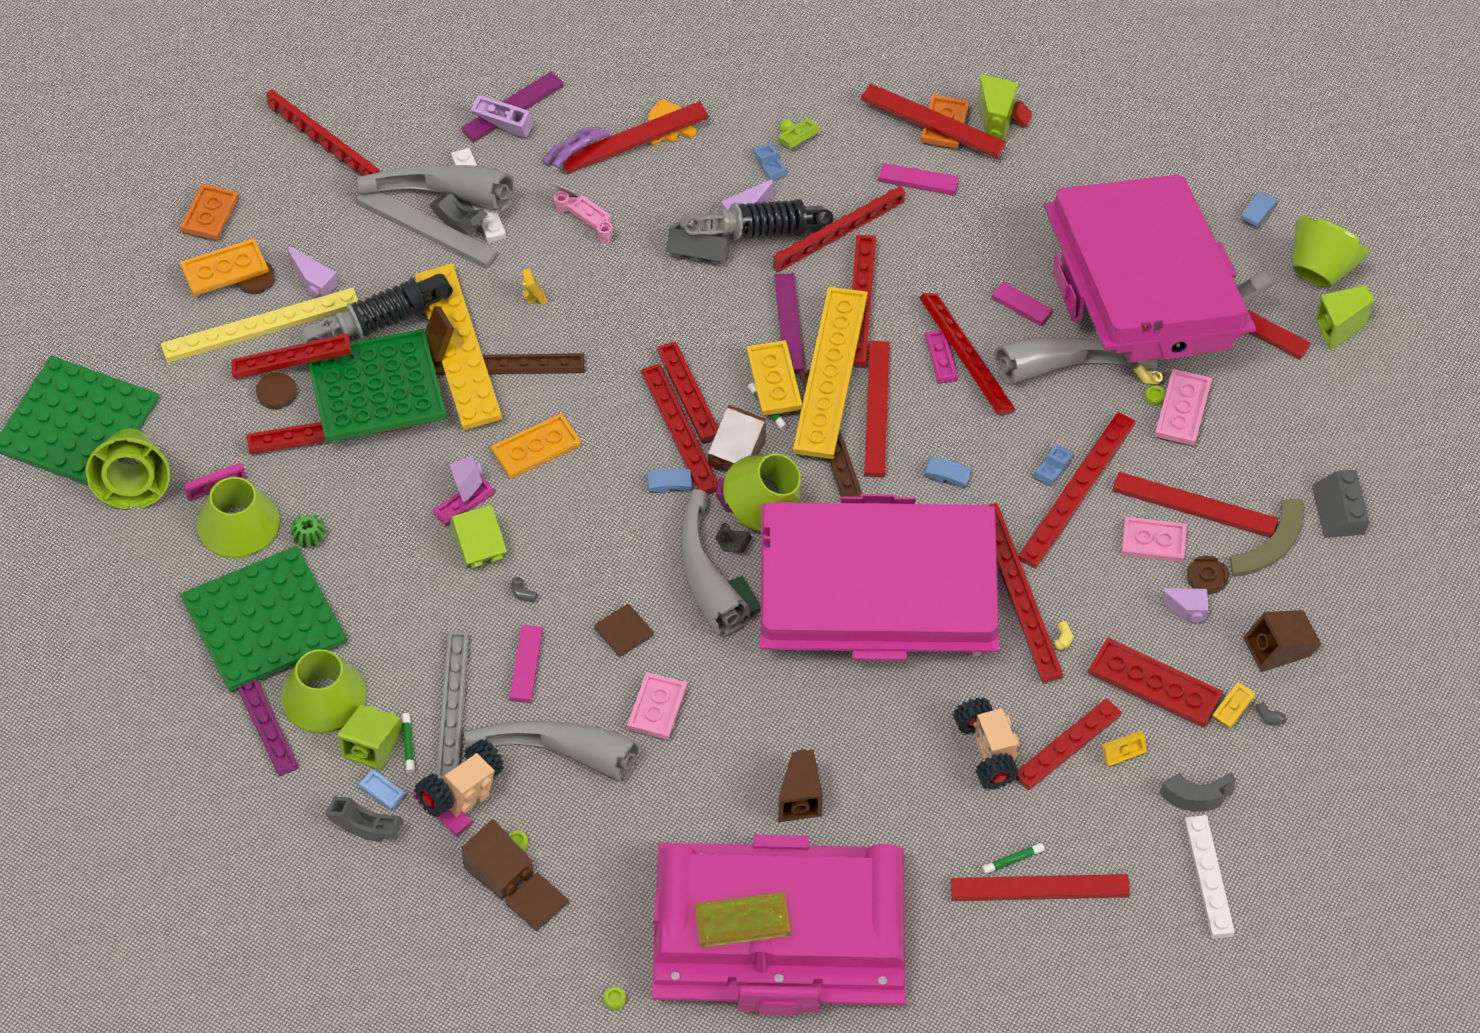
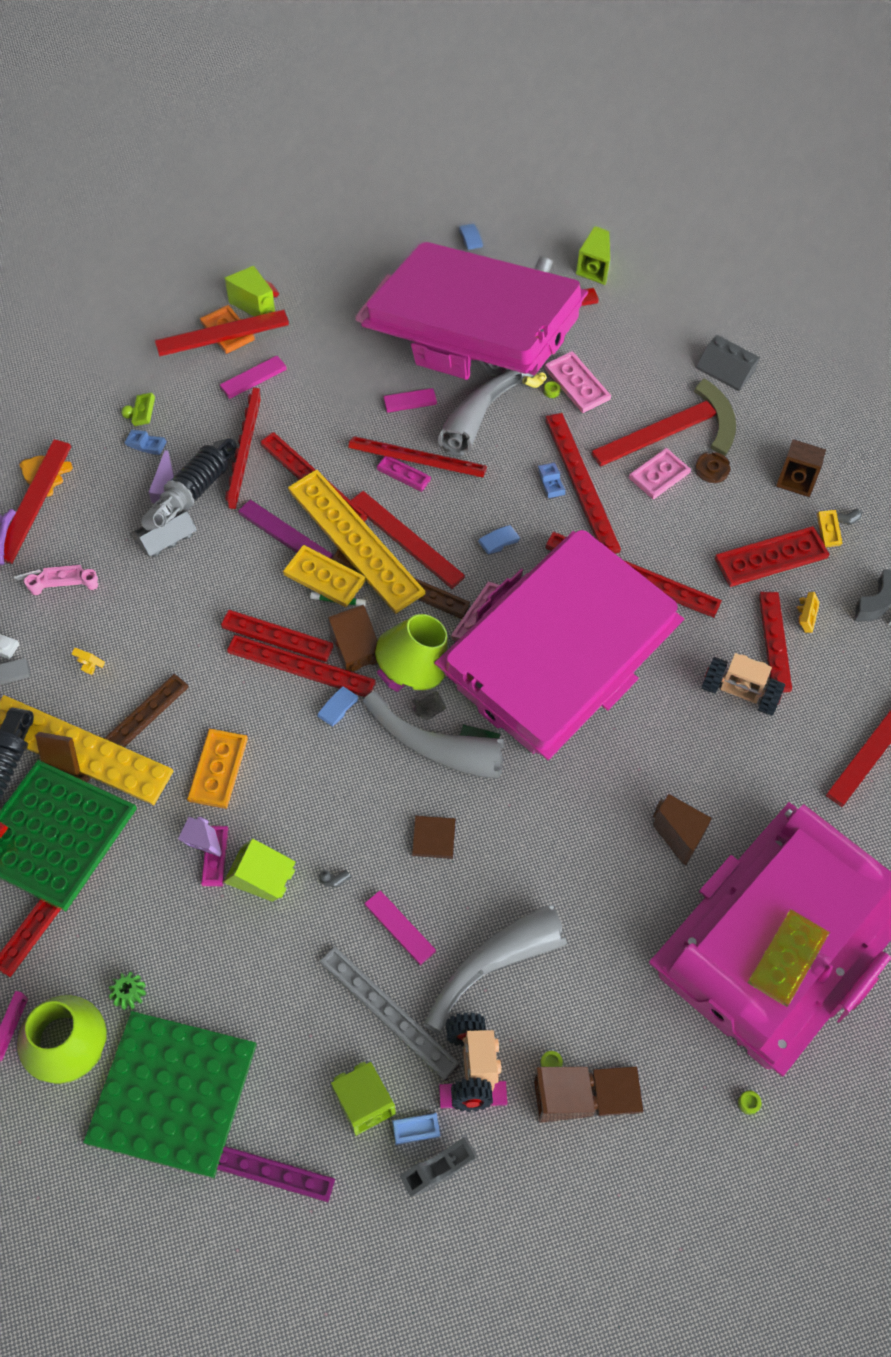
camera: 50 degrees left, 5 degrees up
(322, 708) = (294, 1129): lime cone -> none
(408, 746) = (392, 1074): green bar -> none
(657, 706) = (521, 867): bright pink plate -> none
(1013, 858) = (839, 743): green bar -> none
(1066, 636) = (690, 575): light yellow arm -> none
(1187, 603) = (729, 493): lavender slope -> none
(1324, 251) = (545, 225): lime cone -> none

